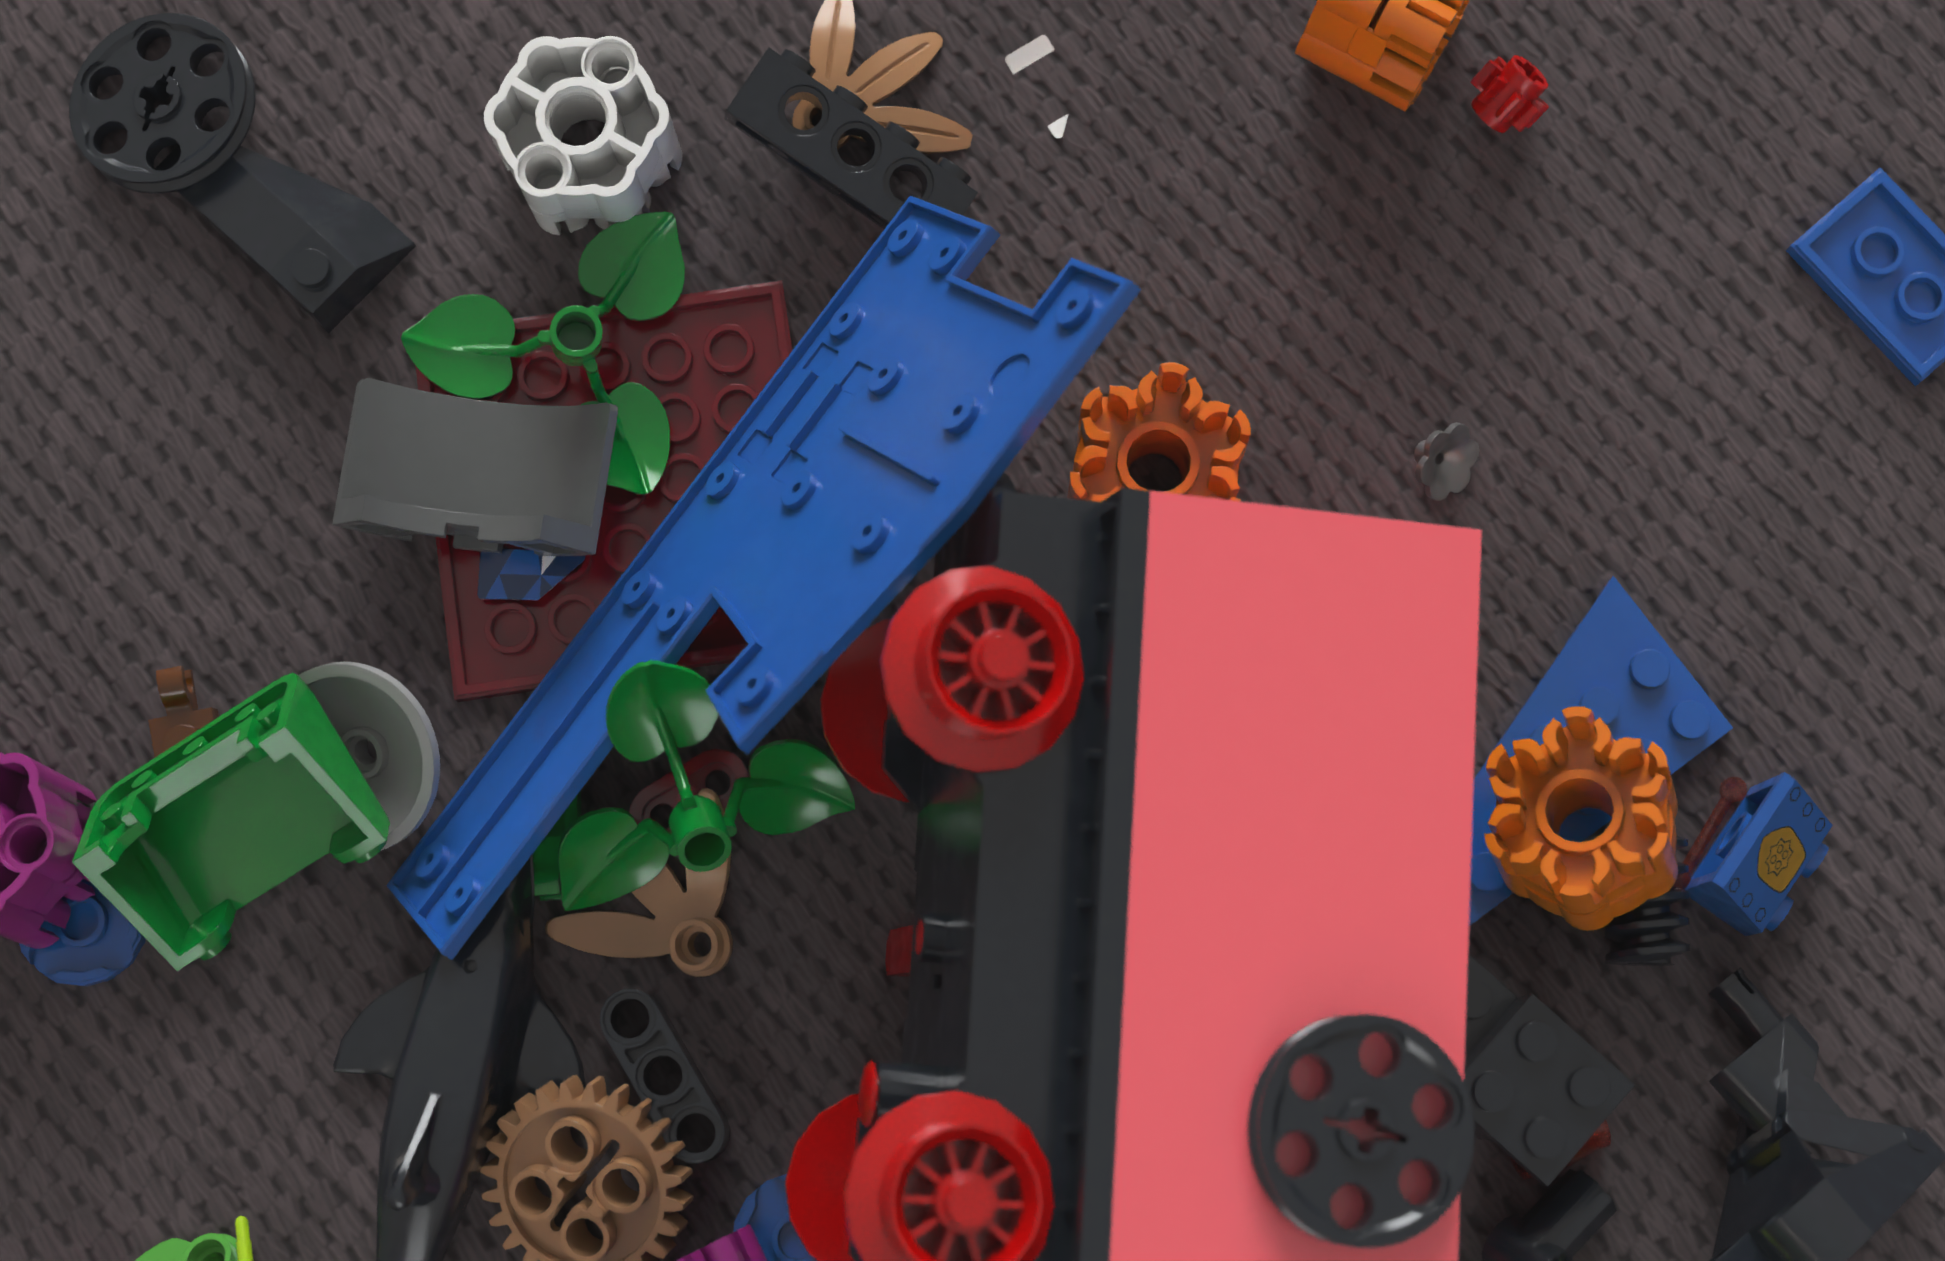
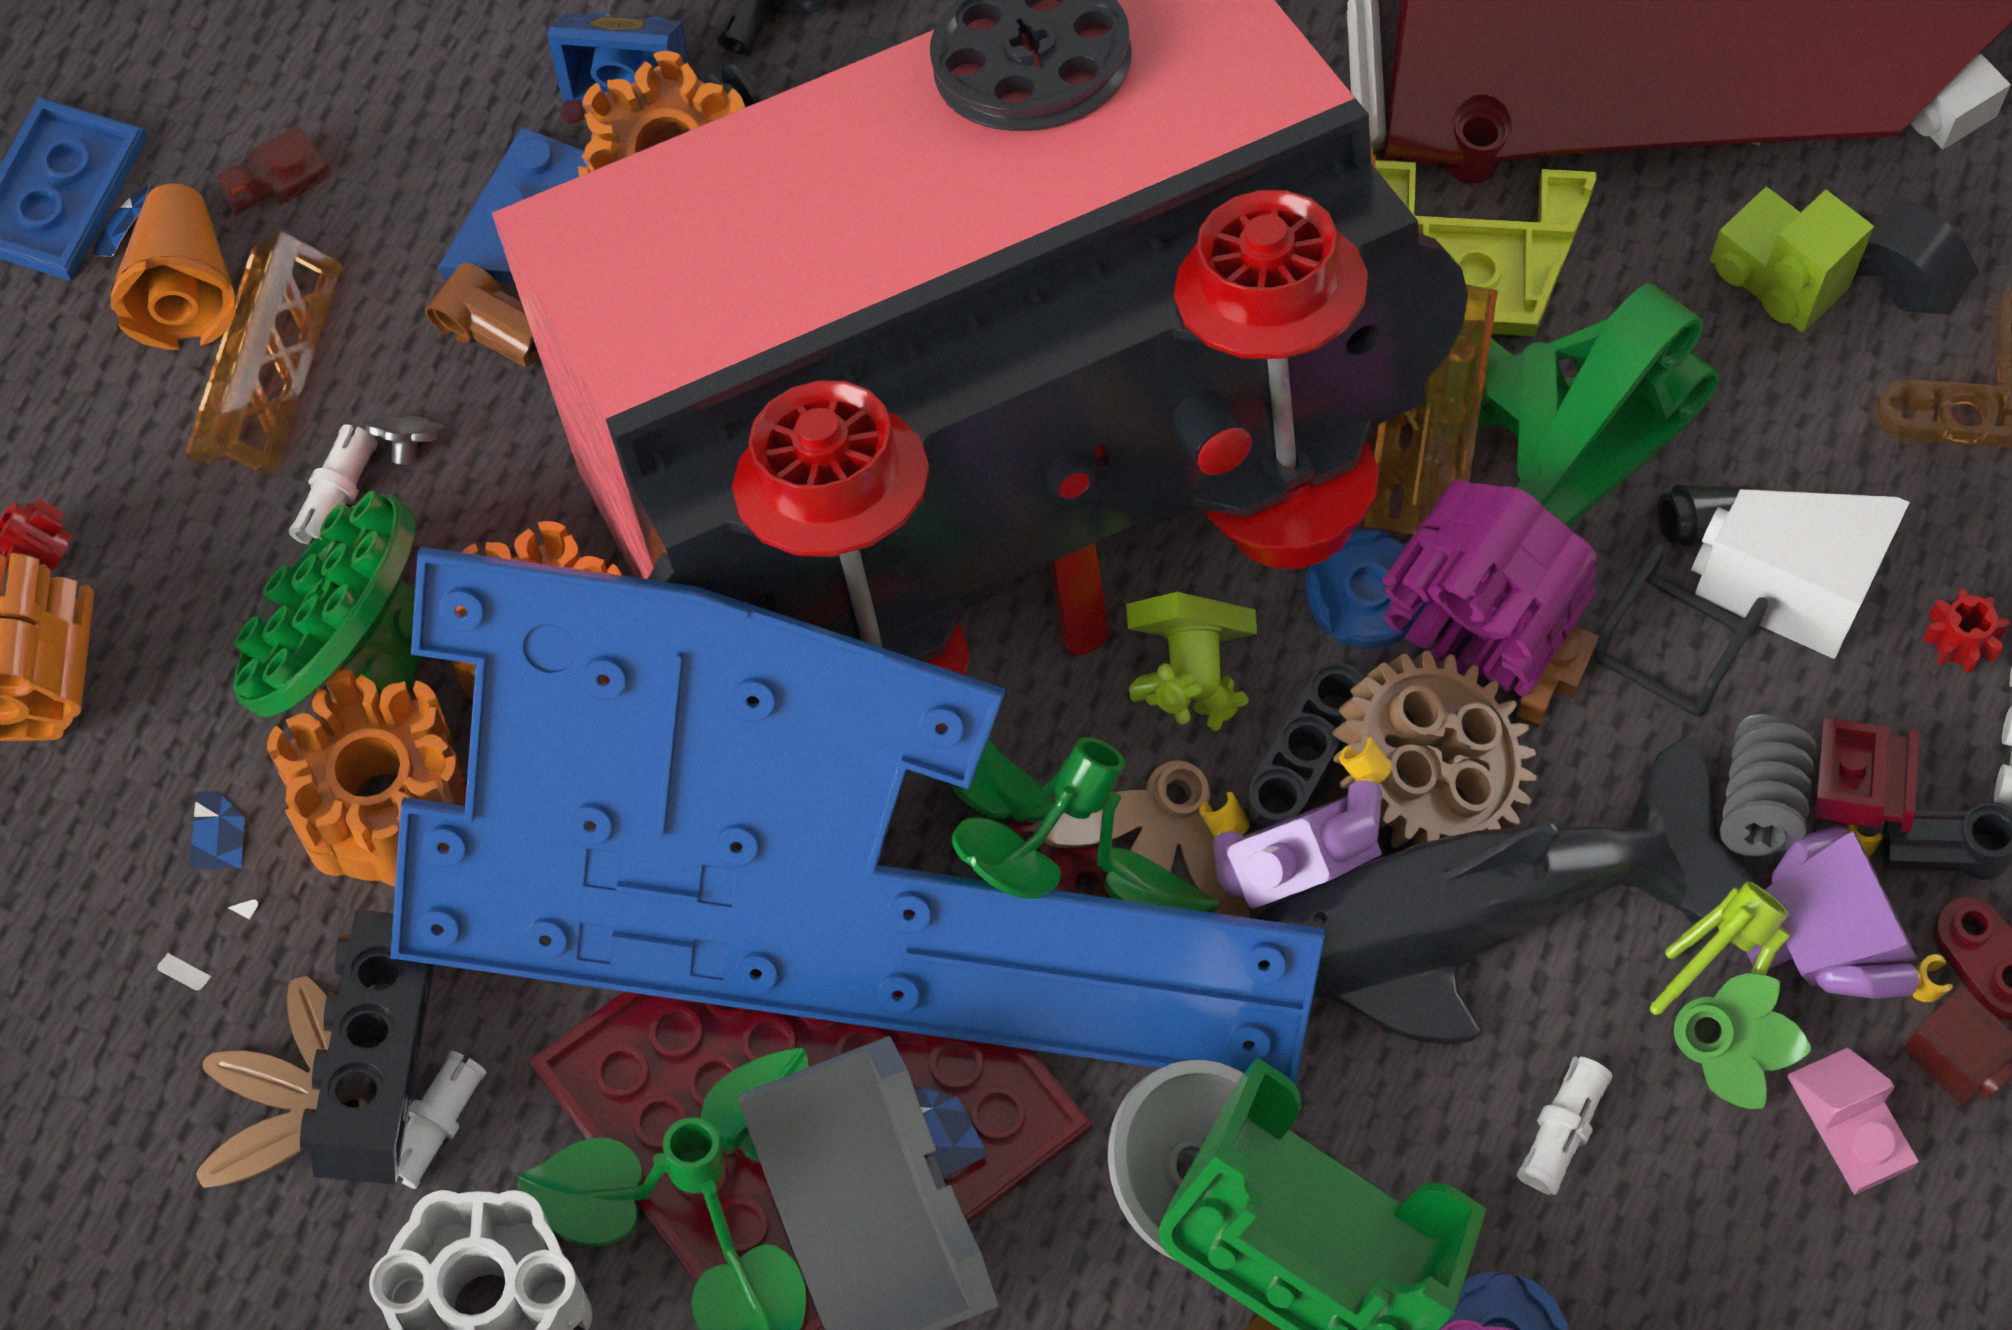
camera: 120 degrees left, 15 degrees down
(214, 1089) = (1564, 1125): none -> white pin
(550, 993) = (1306, 846): none -> medium lavender torso
(779, 187) = (436, 1115): none -> white pin
(822, 1032) = (1193, 634): none -> lime piece
(1106, 219) = (347, 746): none -> orange piece
(1143, 134) = (216, 833): none -> sticker
(1259, 308) = (336, 611): none -> green bracket
(1425, 374) = (334, 482): none -> white pin
(1538, 589) = (479, 310): none -> dark orange piece
(1613, 360) = (243, 352): none -> clear orange fence
(1735, 333) = (173, 273): none -> orange cone
(1807, 490) = (278, 167): none -> clear red plate
(1823, 318) = (119, 224): none -> sticker

